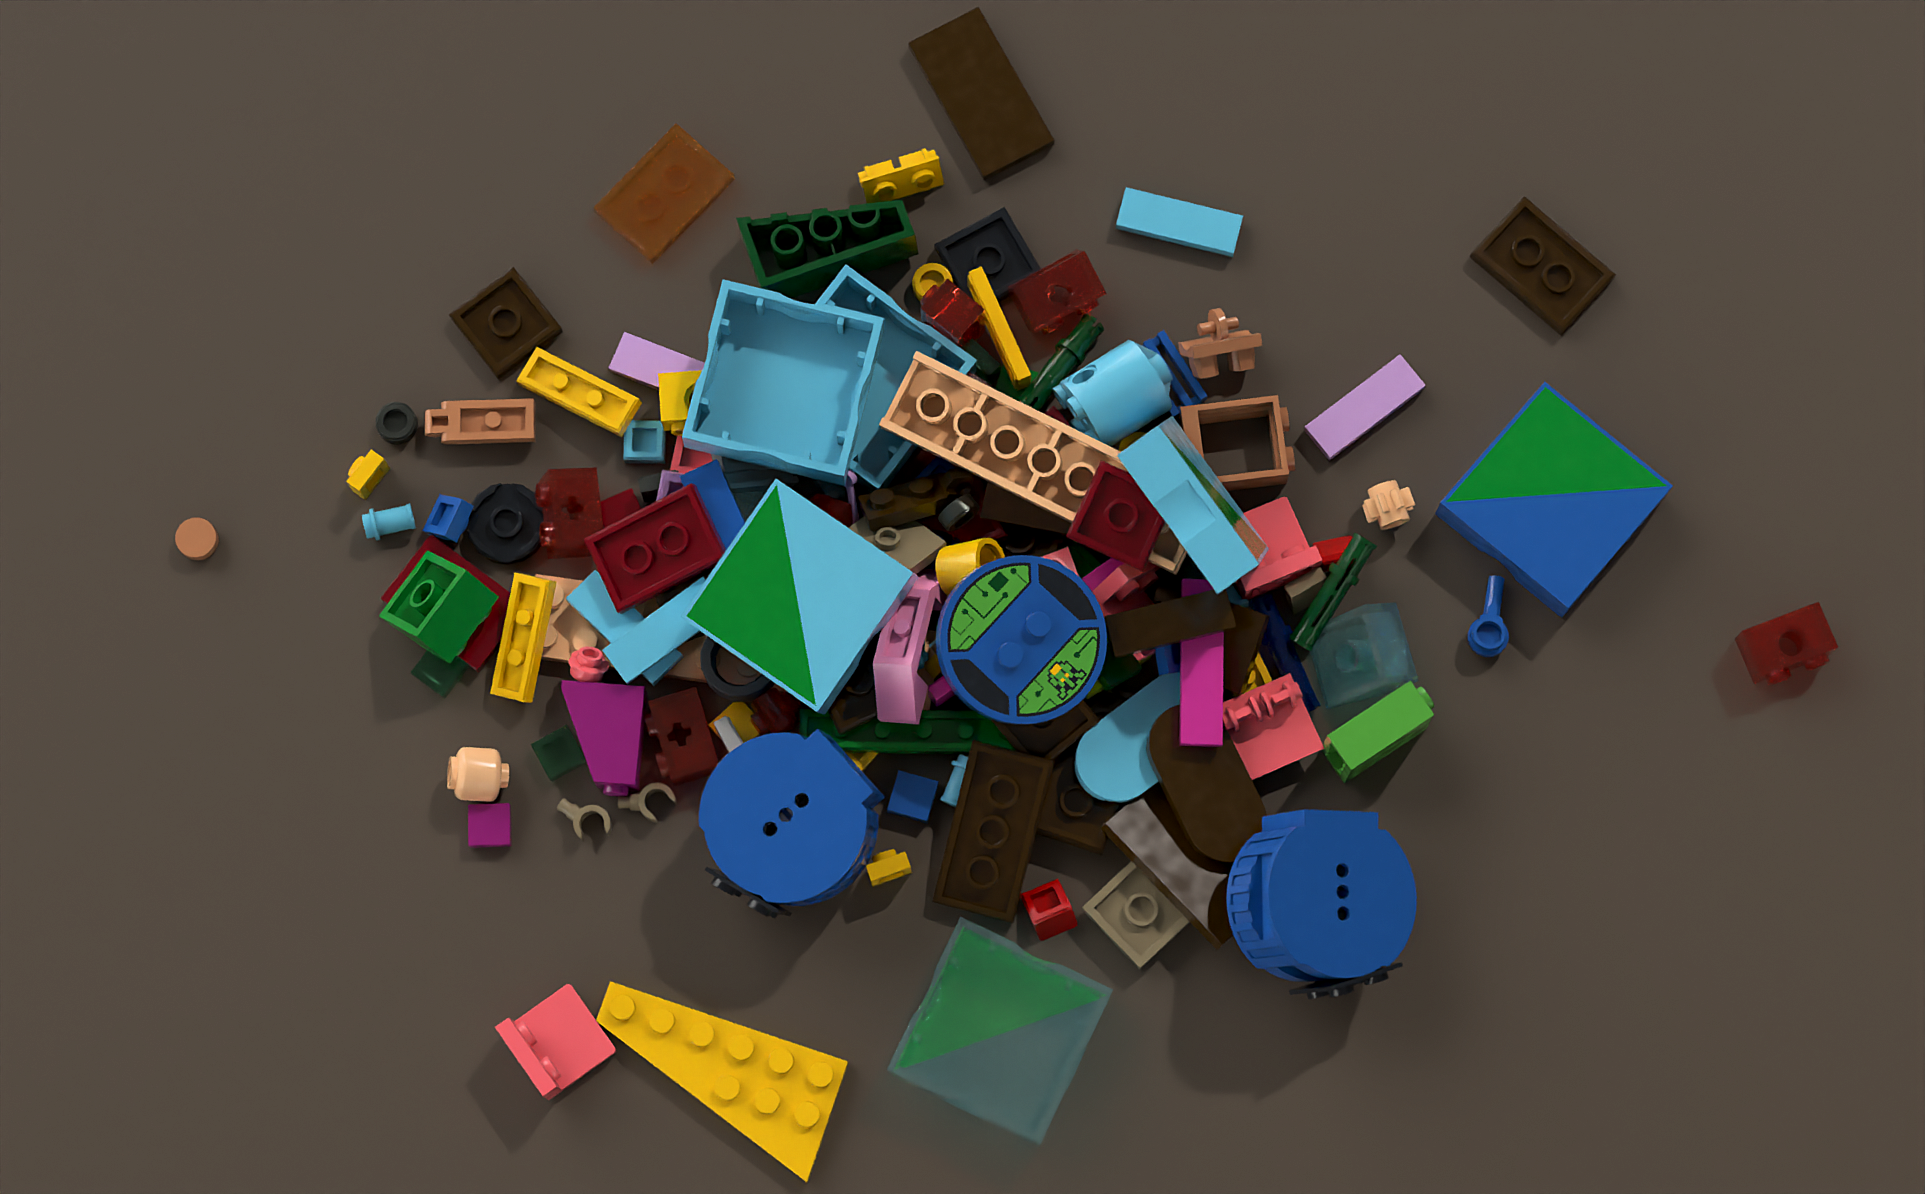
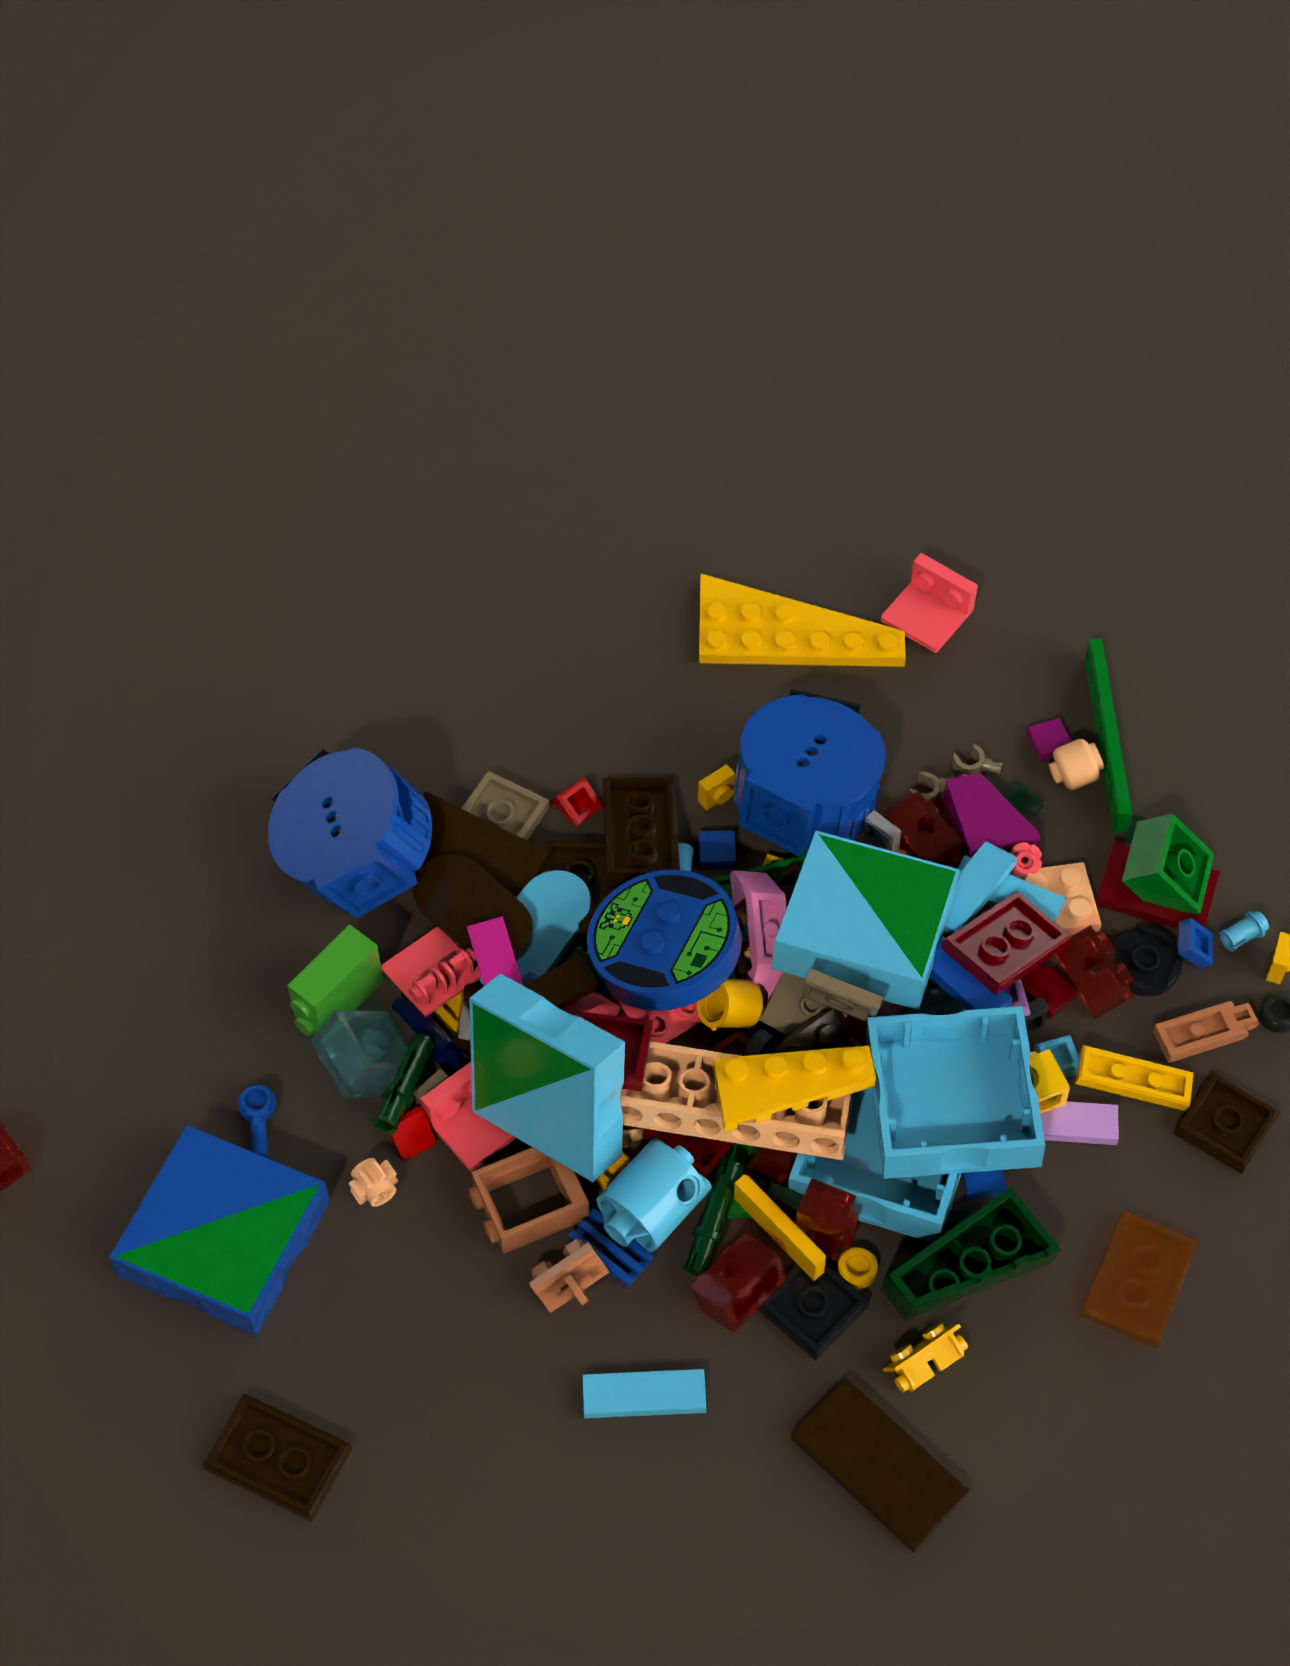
camera: 160 degrees right, 20 degrees down
(425, 804) = (1107, 736): none -> green tile
(523, 637) = (1087, 867): yellow tile -> none
(861, 505) = (841, 995): none -> dark tan tile
(957, 426) = (774, 1082): none -> yellow wing
(1000, 1032) = (585, 700): clear light blue tile -> none
(1364, 407) = (417, 1271): lavender tile -> none

